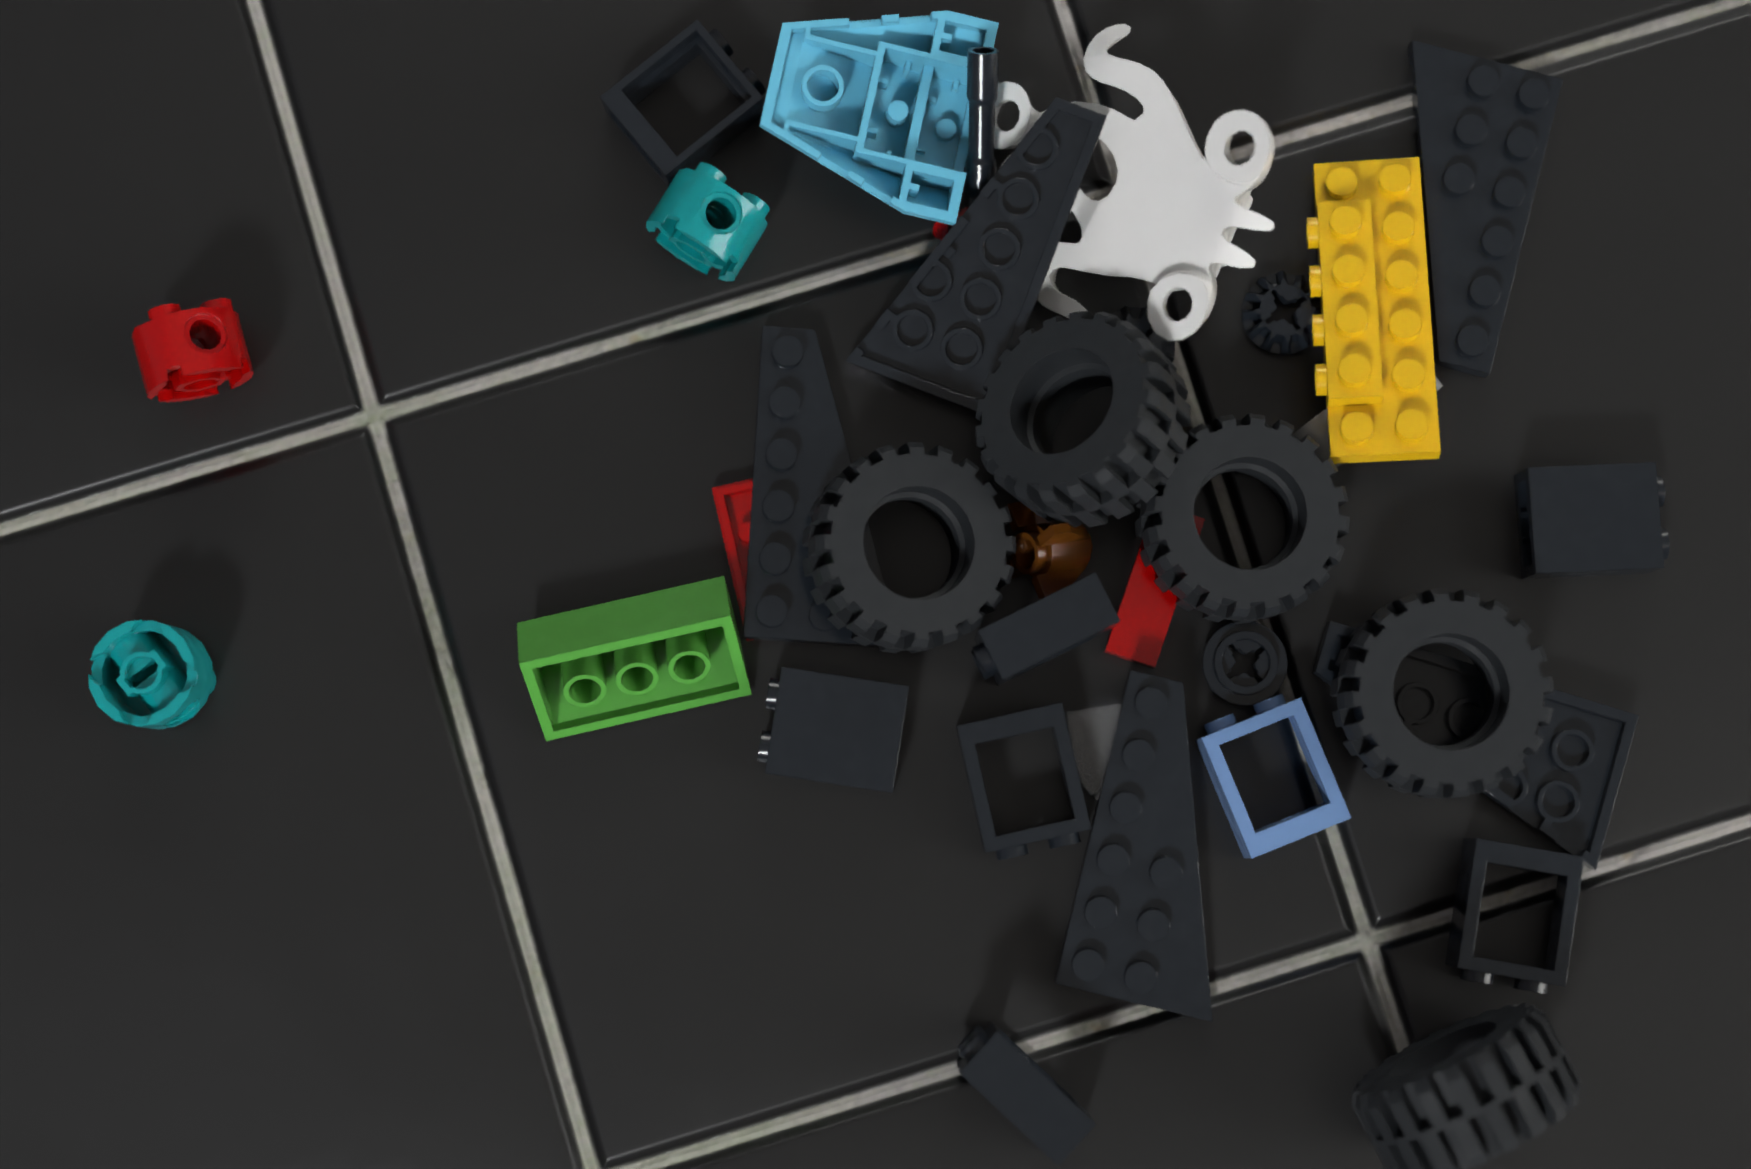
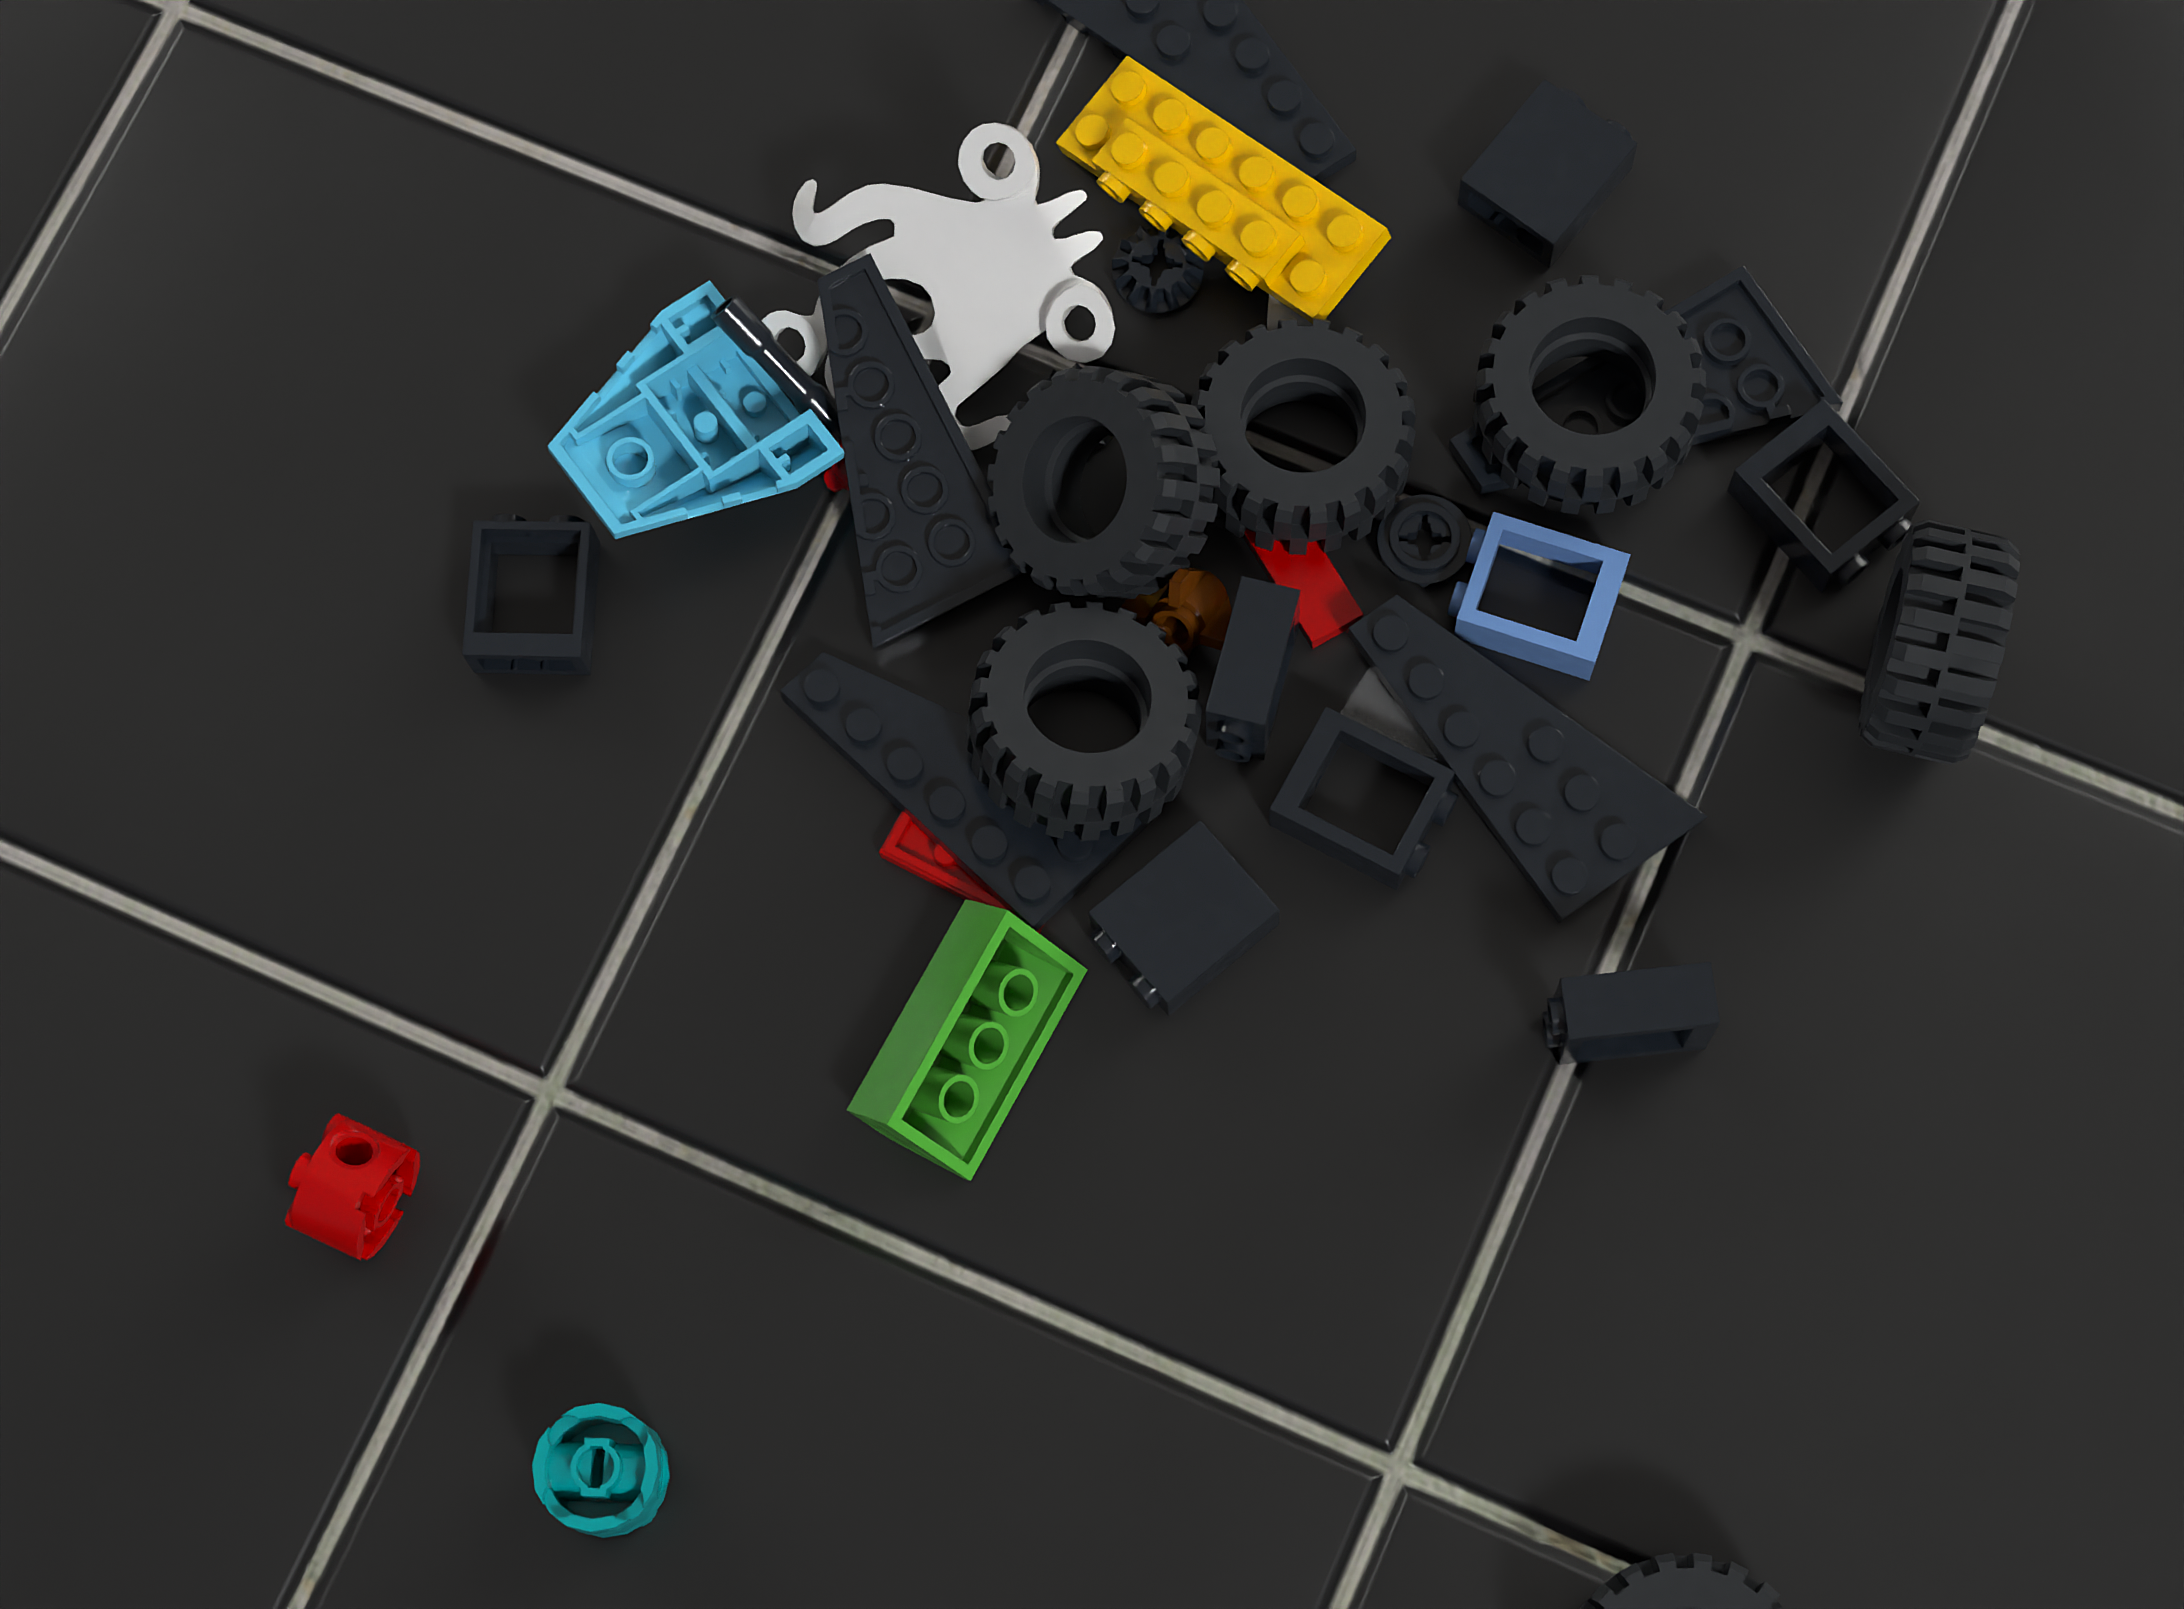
camera: 45 degrees left, 10 degrees down
(689, 236) = (653, 655): teal brick -> none

